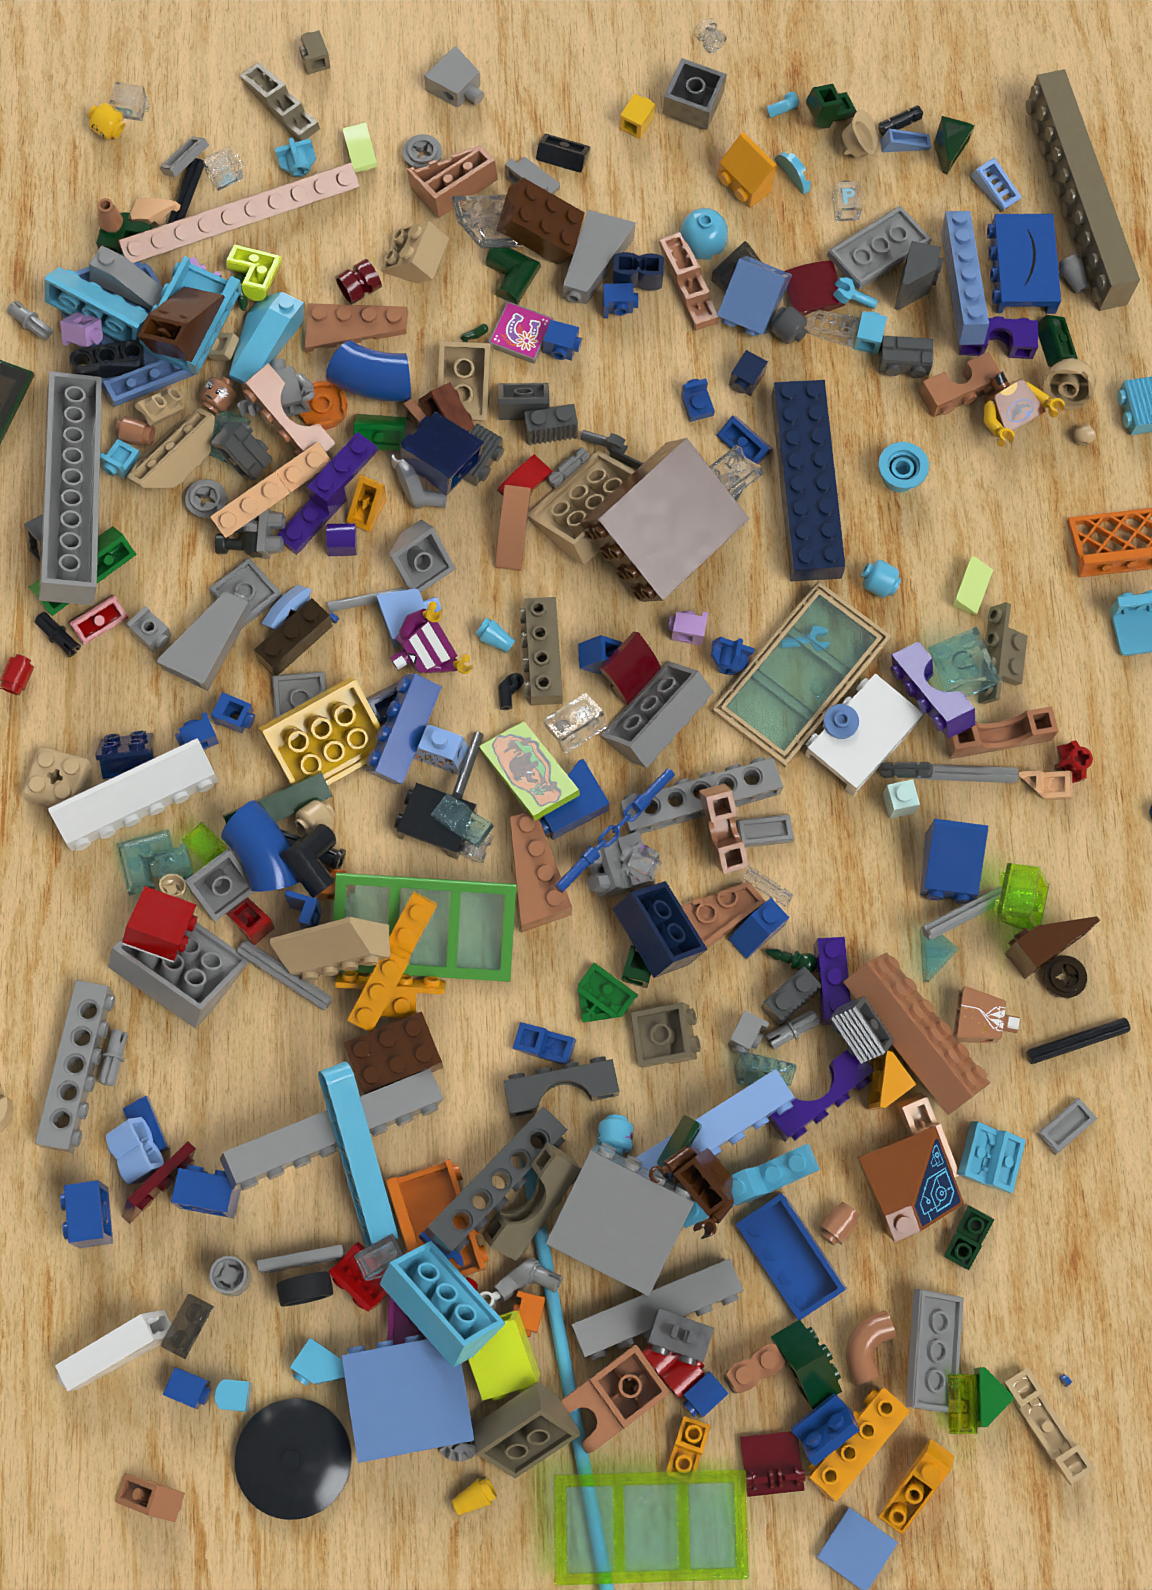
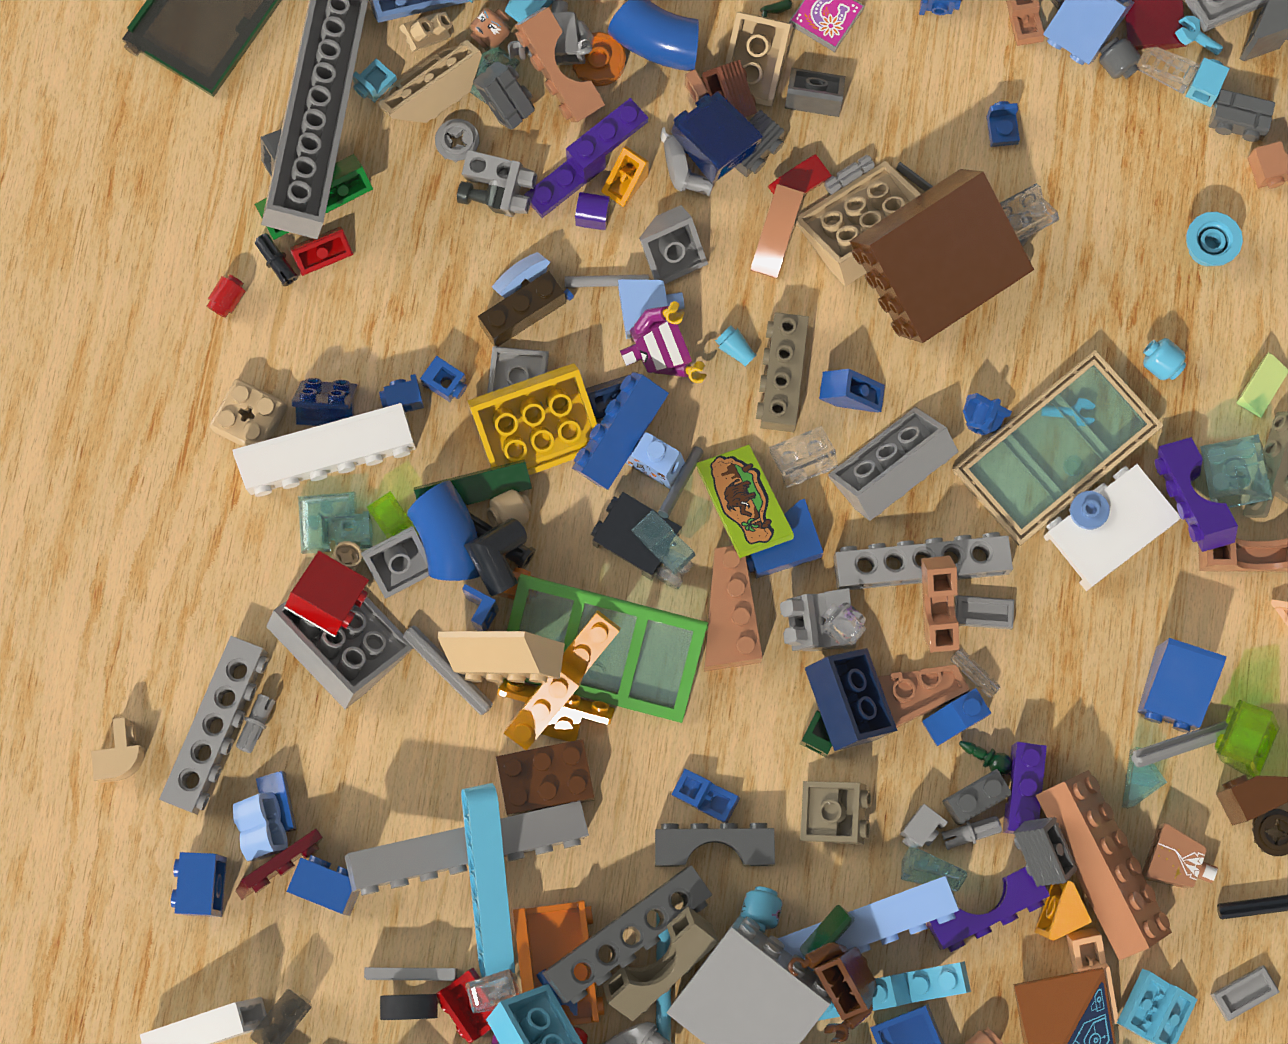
camera: 15 degrees right, 5 degrees up
(135, 431) = (395, 53): nougat brick -> none
(142, 623) = (364, 265): light grey brick -> none
(206, 643) = (431, 297): light grey slope -> none
(230, 1276) = (334, 977): light grey wheel -> none
(251, 921) = (423, 605): red slope -> none
(252, 584) = (481, 250): light grey tile -> none
(271, 490) = (527, 144): light nougat bracket -> none
(382, 430) = (656, 98): green panel -> none
(508, 688) = (739, 405): black arm -> none
(550, 424) = (839, 123): dark grey brick -> none
(561, 340) = (869, 32): blue brick -> none
(603, 995) = (777, 756): green slope -> none
(613, 441) = (901, 155): dark grey bar -> none
(631, 667) = (874, 408): dark red slope -> none
(639, 804) = (794, 606): blue piece -> none
(688, 627) = (944, 374): lavender brick -> none
(738, 433) = (1041, 170): blue slope -> none
(748, 373) = (1064, 104): dark blue brick -> none
(808, 481) = (1106, 236): dark blue brick -> none
(901, 799) = (1137, 606): light aqua brick -> none
(906, 769) = (1150, 575): dark grey axle -> none
(974, 773) = (1213, 590): light grey axle -> none

